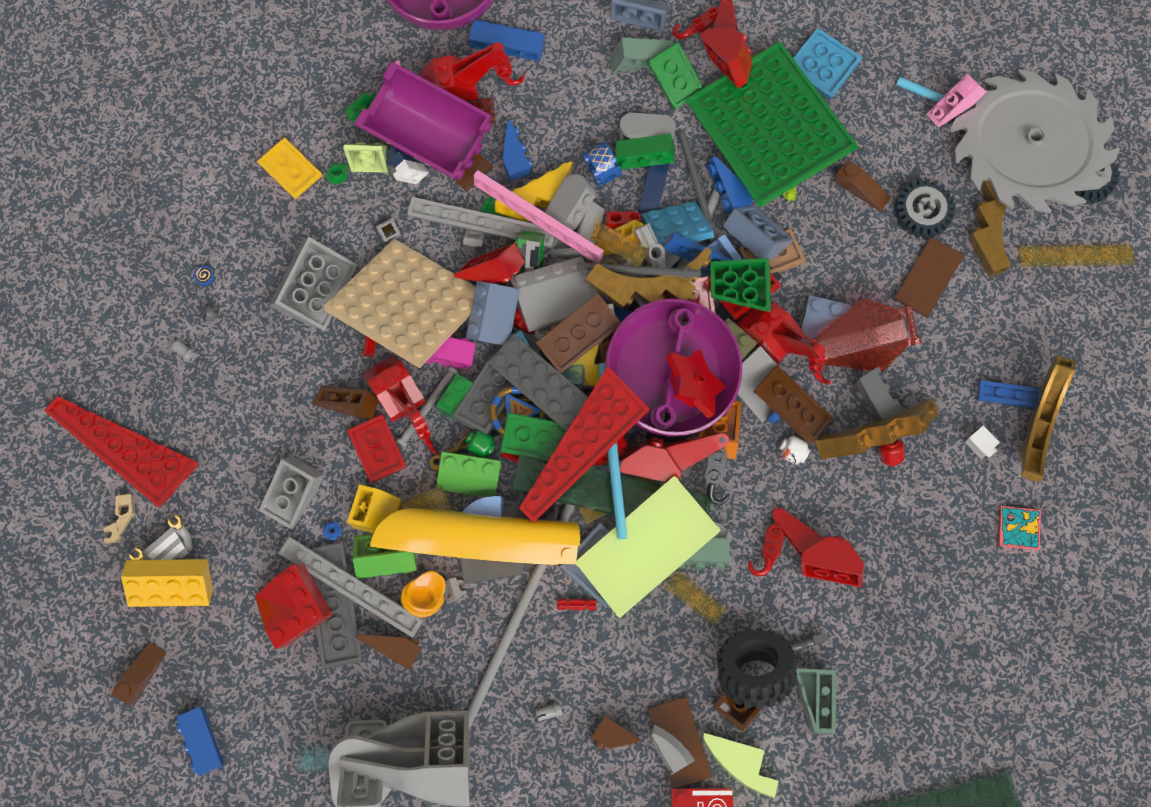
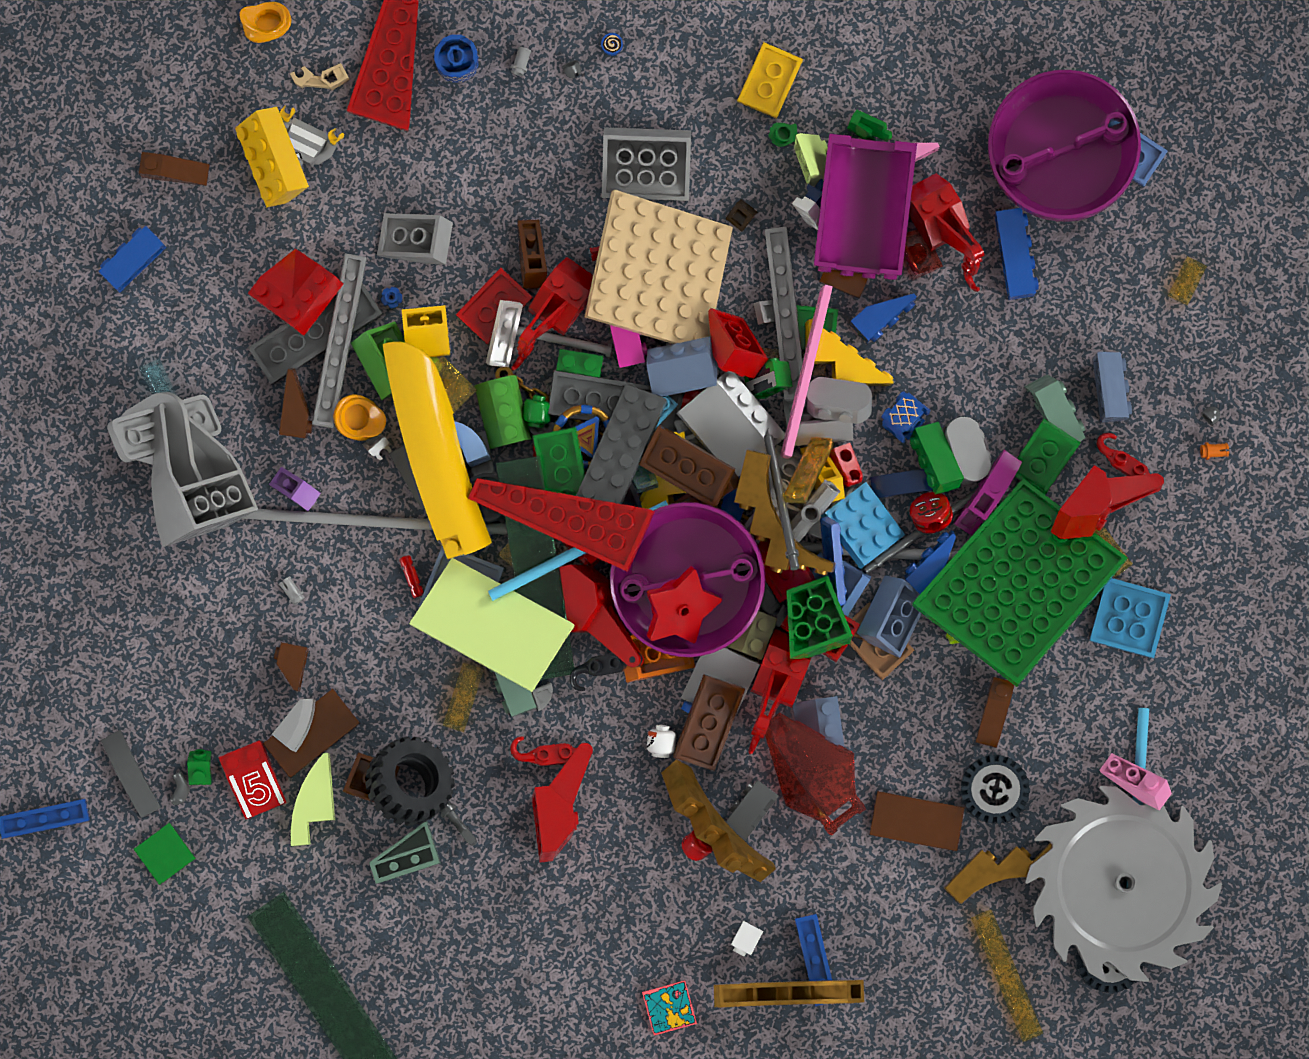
camera: 70 degrees right, 10 degrees up
(50, 546) = (265, 21): none -> light orange piece
(156, 399) = (456, 58): none -> blue brick
(403, 447) = (504, 333): none -> white plate
(461, 675) = (294, 488): none -> medium lavender slope
(686, 172) = (931, 512): none -> red head
(689, 126) = (988, 493): none -> magenta slope

